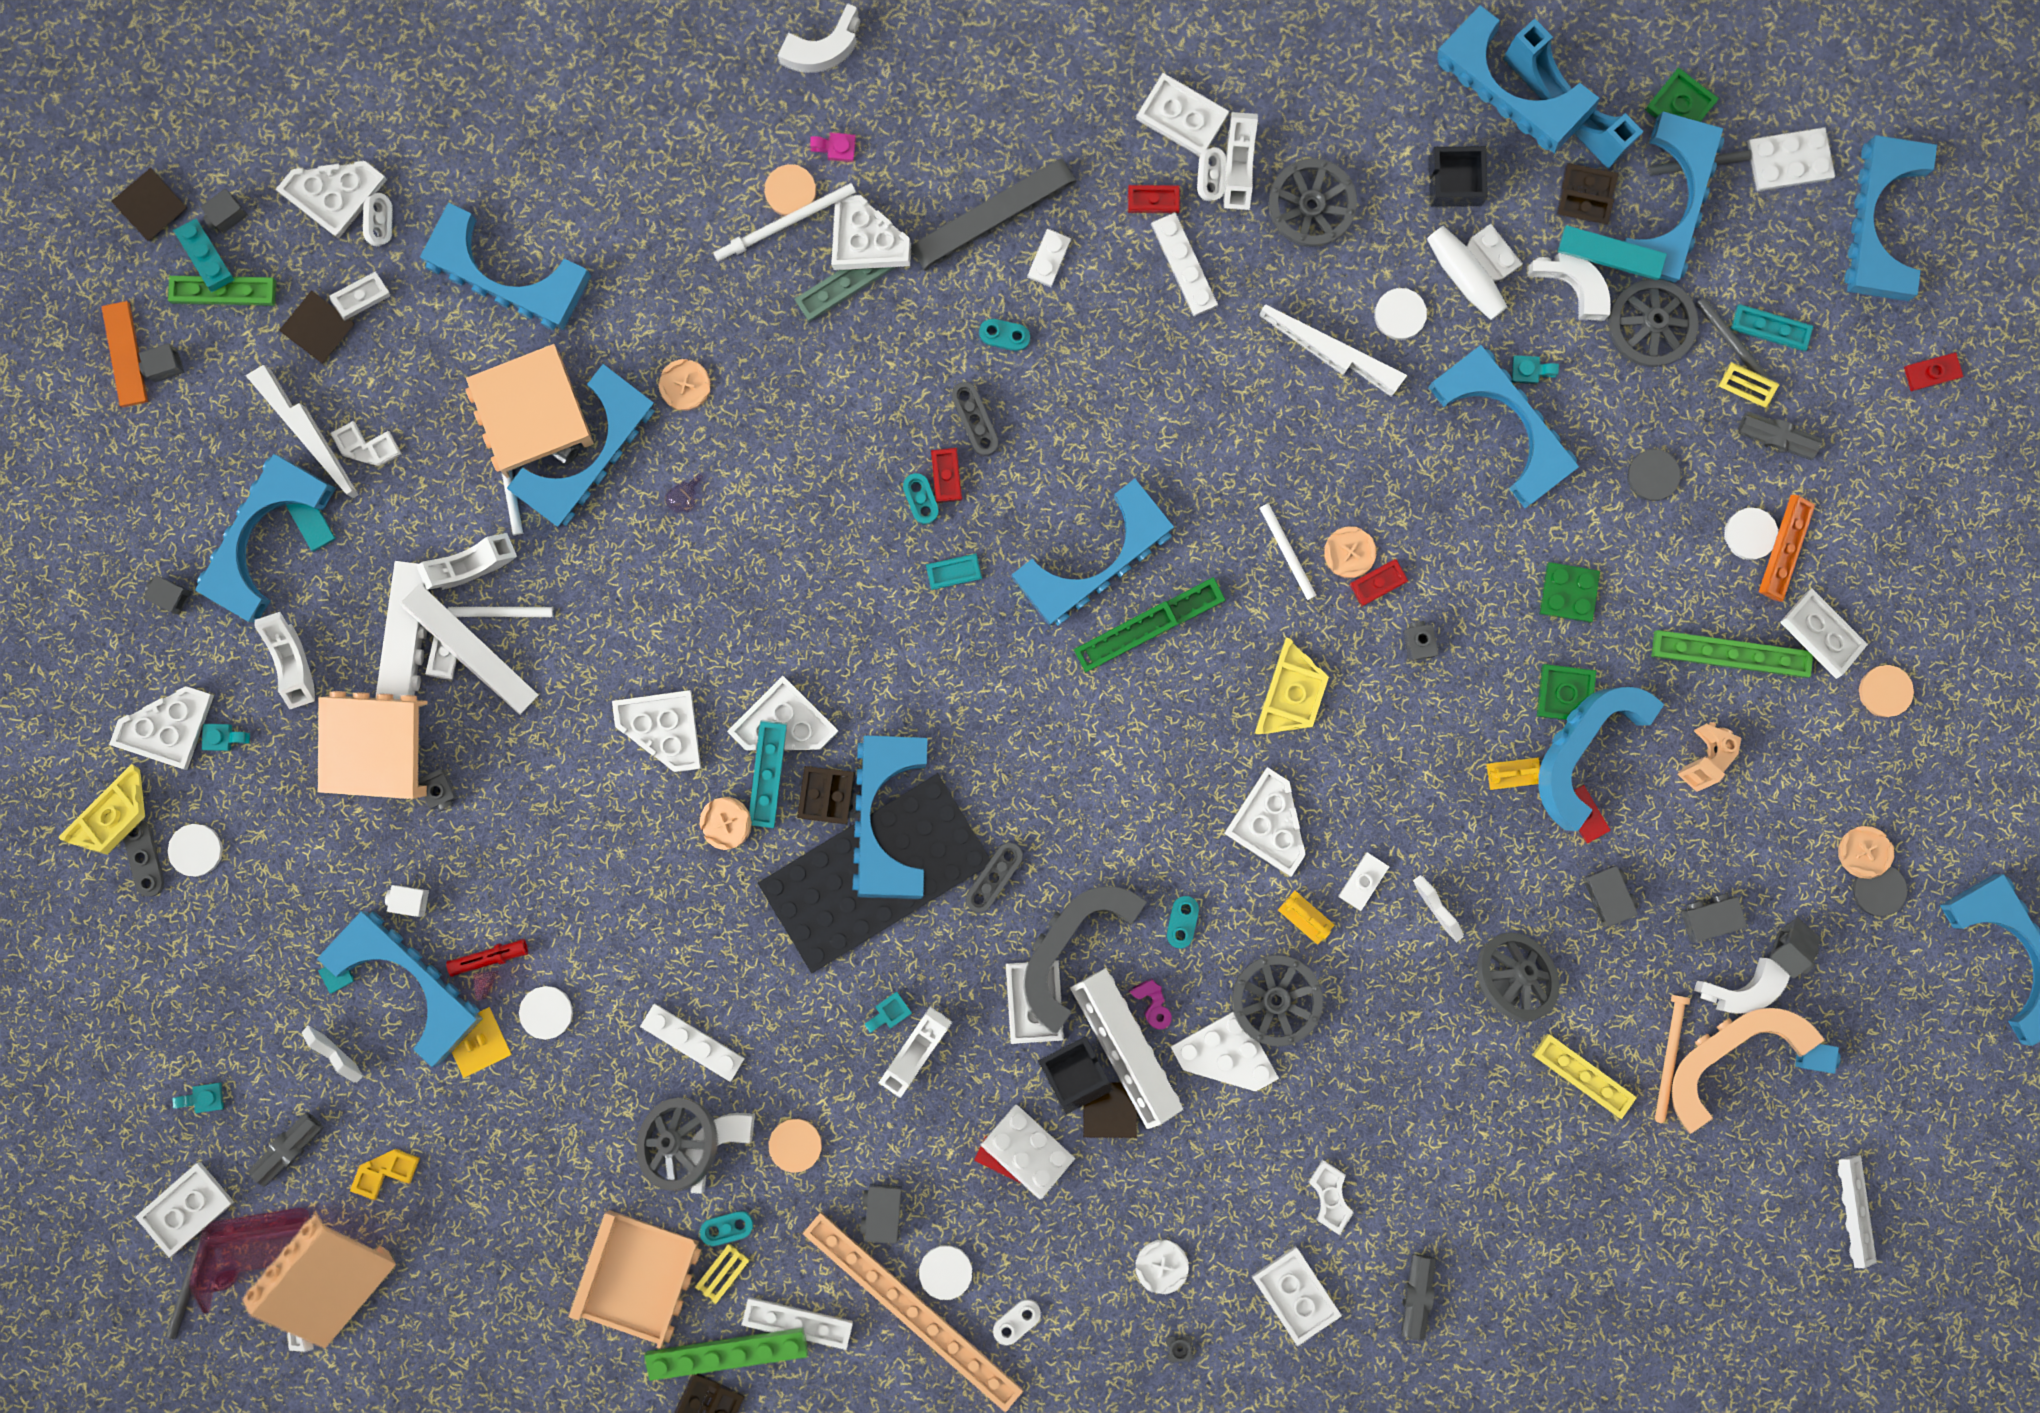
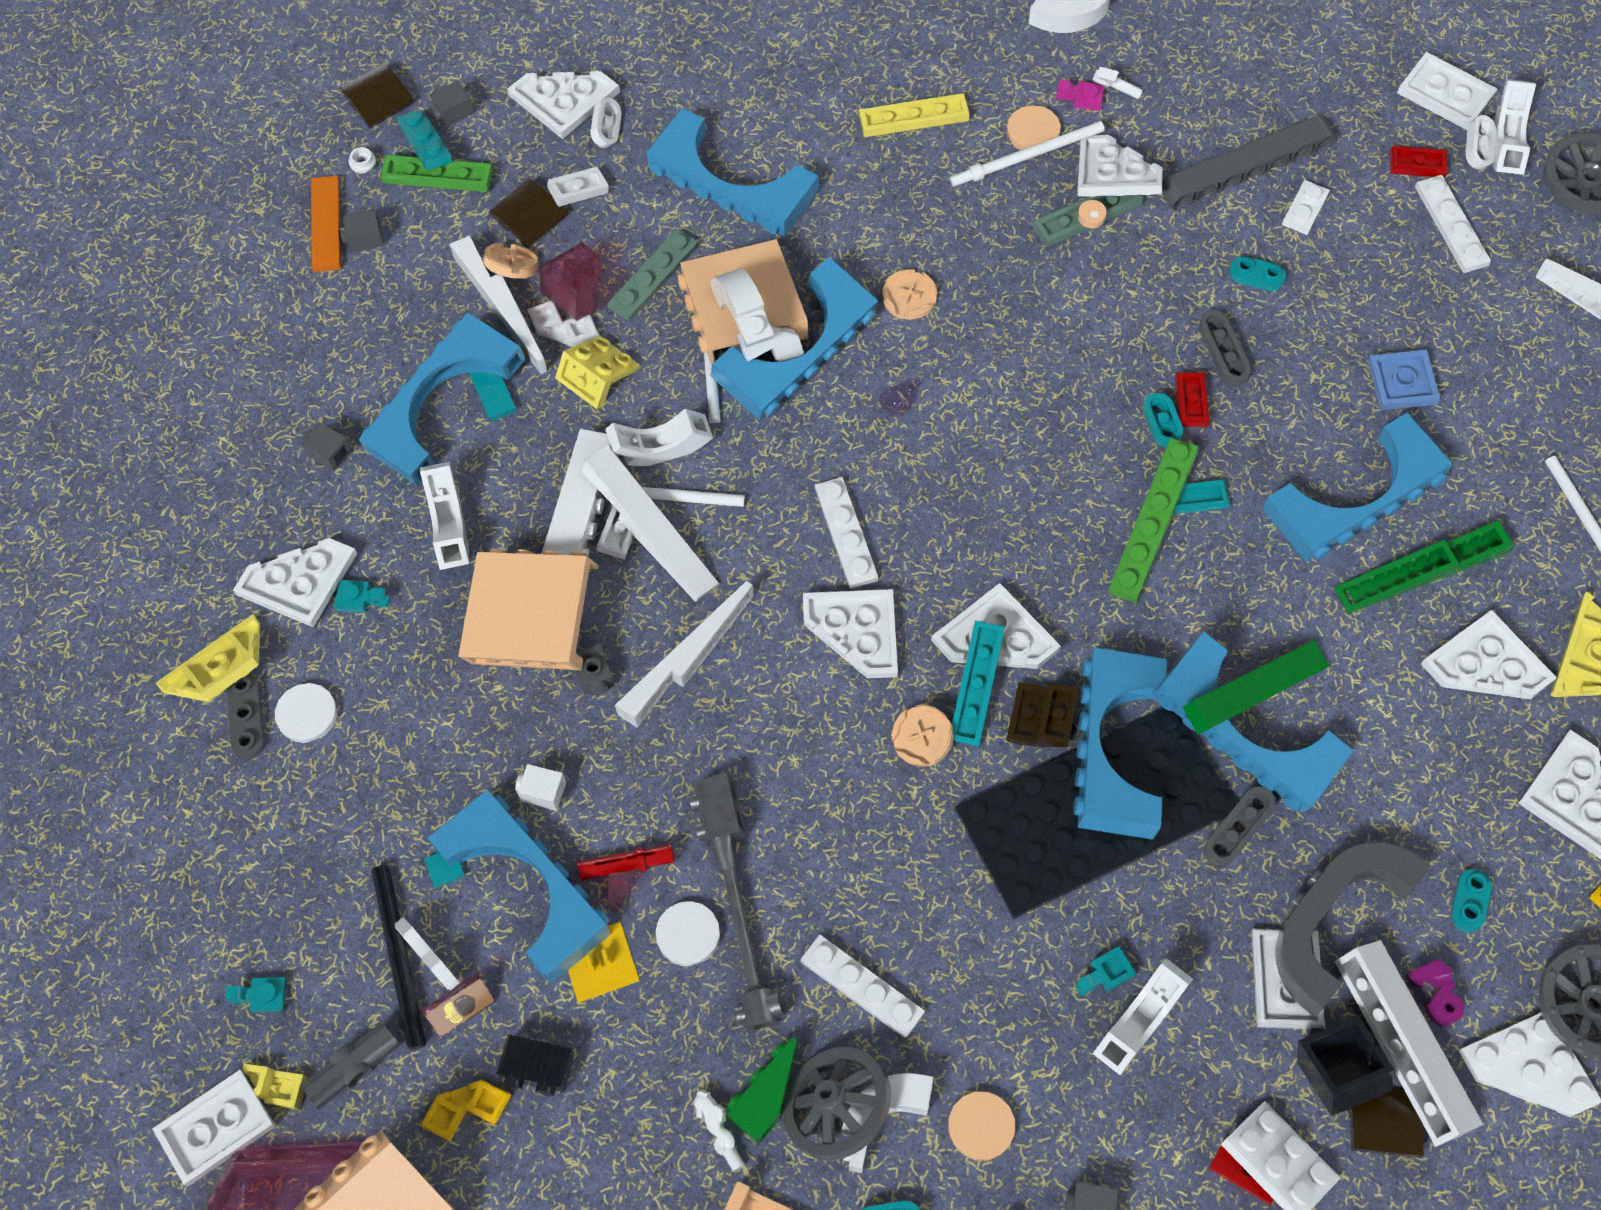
camera: 10 degrees right, 20 degrees down
(140, 277) = (359, 154): none -> white plate
(229, 1170) = (277, 1087): none -> light yellow slope
(307, 386) = (510, 262): none -> light nougat tile
(310, 1057) = (398, 958): none -> black axle
(363, 404) = (572, 281): none -> clear pink brick
(365, 1092) = (458, 1005): none -> tile
(402, 490) = (592, 368): none -> light yellow bracket
(435, 1135) = (535, 1065): none -> black brick
(443, 384) = (652, 275): none -> sand green plate
(515, 773) = (684, 659): none -> white slope
(524, 437) = (741, 296): none -> white arch
(548, 461) = (784, 345): none -> white tile
(563, 920) = (721, 828): none -> flat silver bar
(583, 1161) = (714, 1117): none -> white animal
(621, 1145) = (762, 1103): none -> green slope
(645, 635) = (846, 533): none -> white plate
(674, 185) = (914, 115): none -> light yellow plate
(847, 289) = (1092, 214): none -> light nougat tile
(868, 133) = (1109, 78): none -> white bar
(915, 600) = (1153, 520): none -> bright green plate
(947, 770) = (1293, 775): none -> dark azure arch
(1001, 760) = (1255, 687): none -> green slope
(1135, 438) = (1403, 380): none -> medium blue plate
(1202, 709) = (1489, 661): none -> white plate

